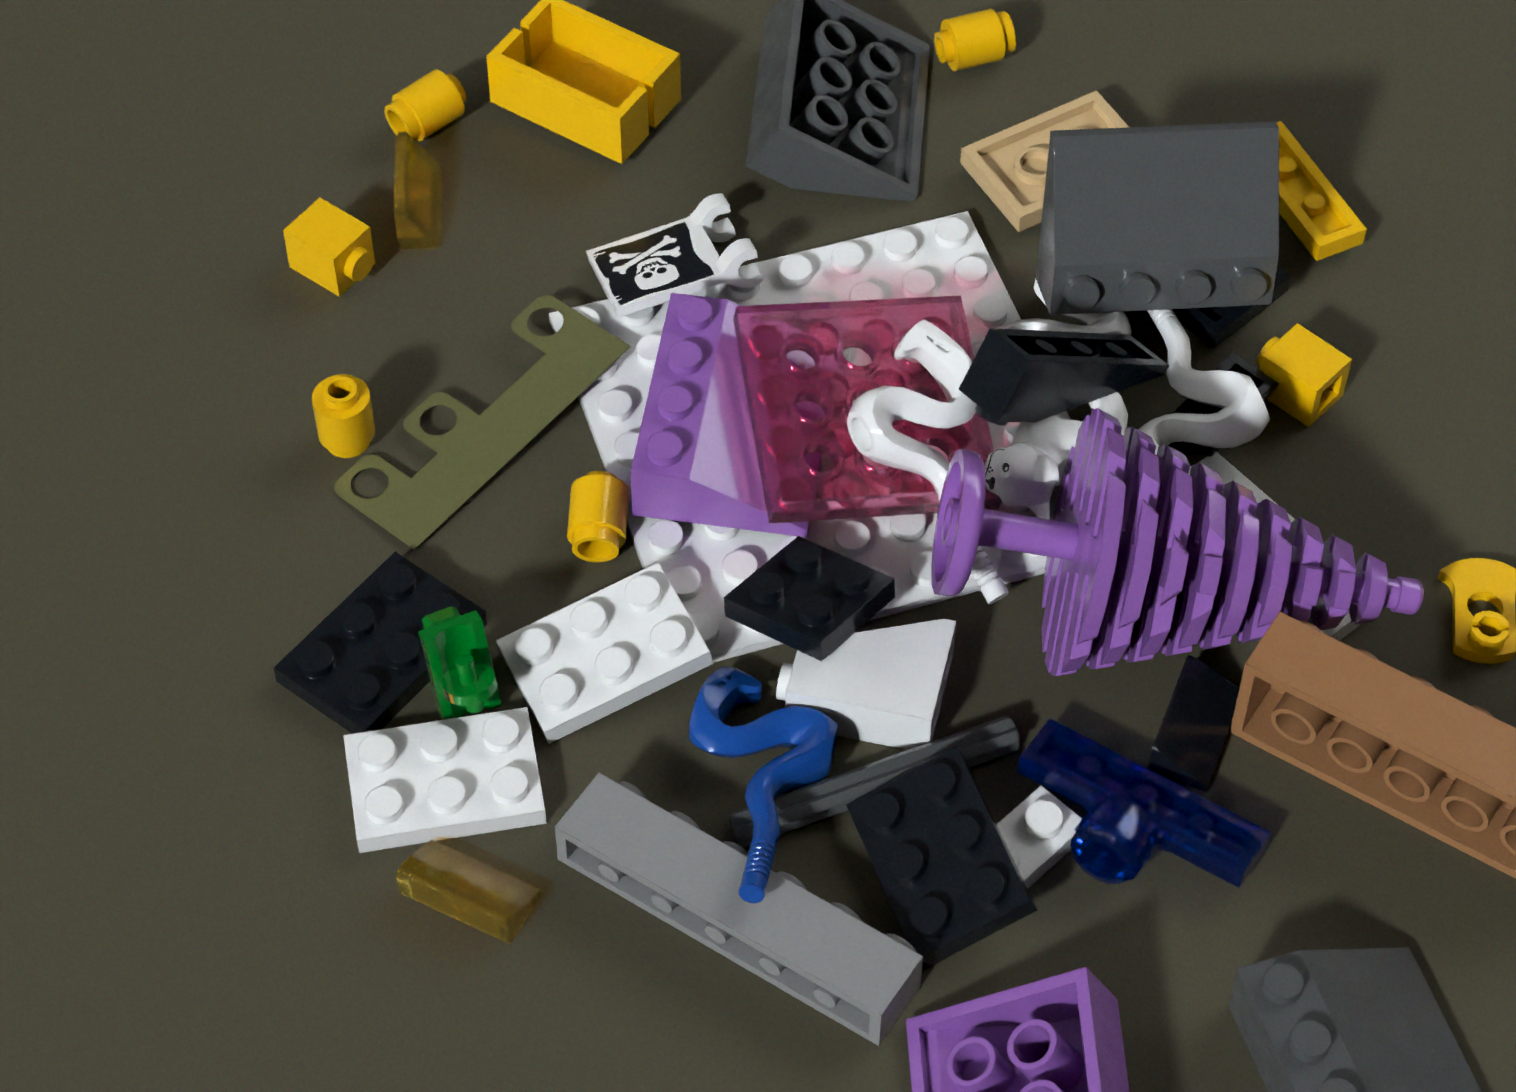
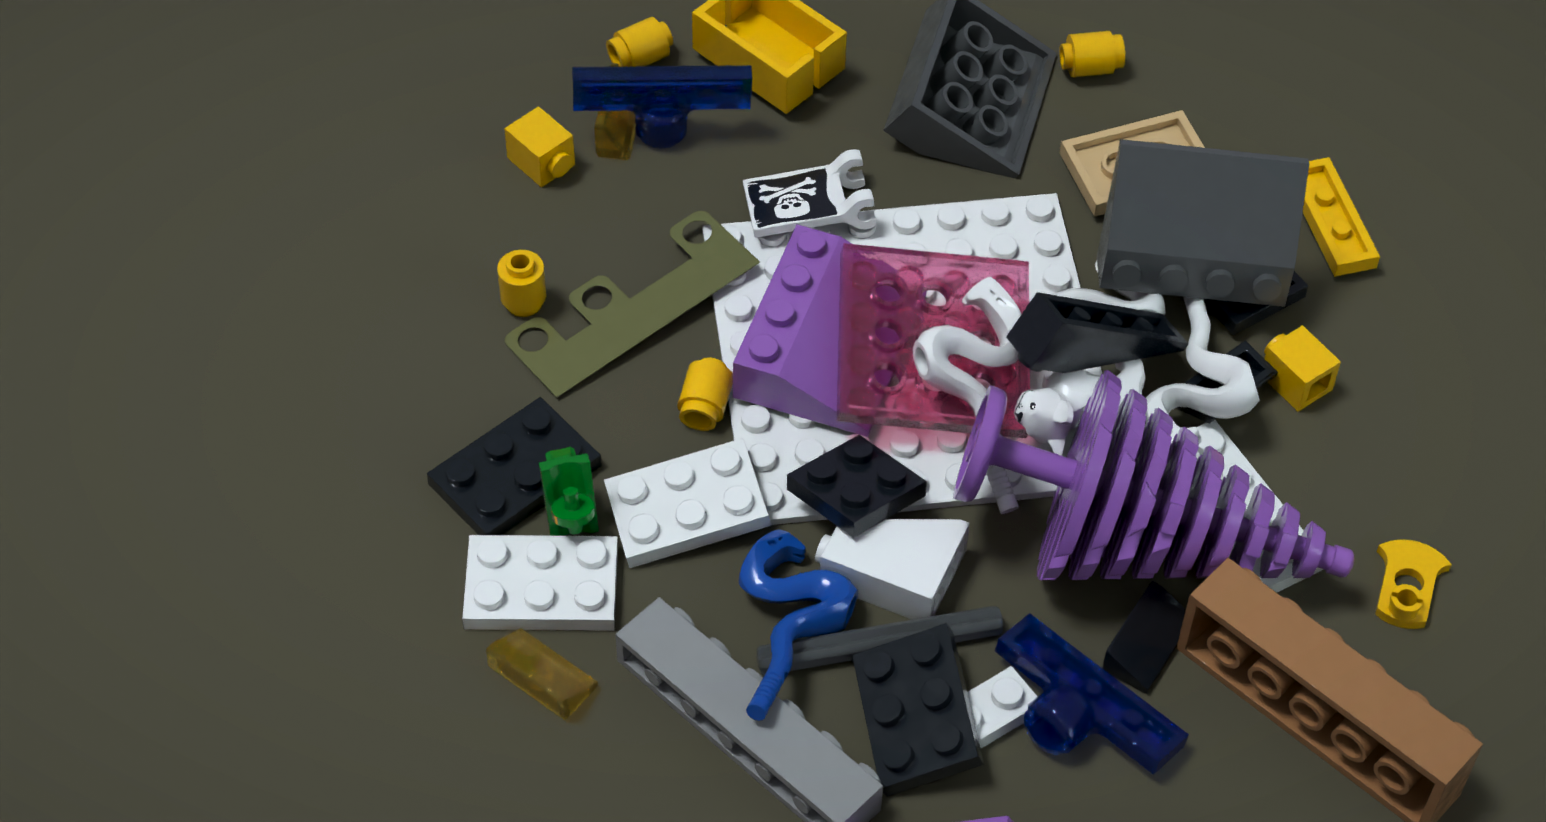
camera: 10 degrees right, 0 degrees up
(469, 162) = (661, 95): none -> clear blue plate

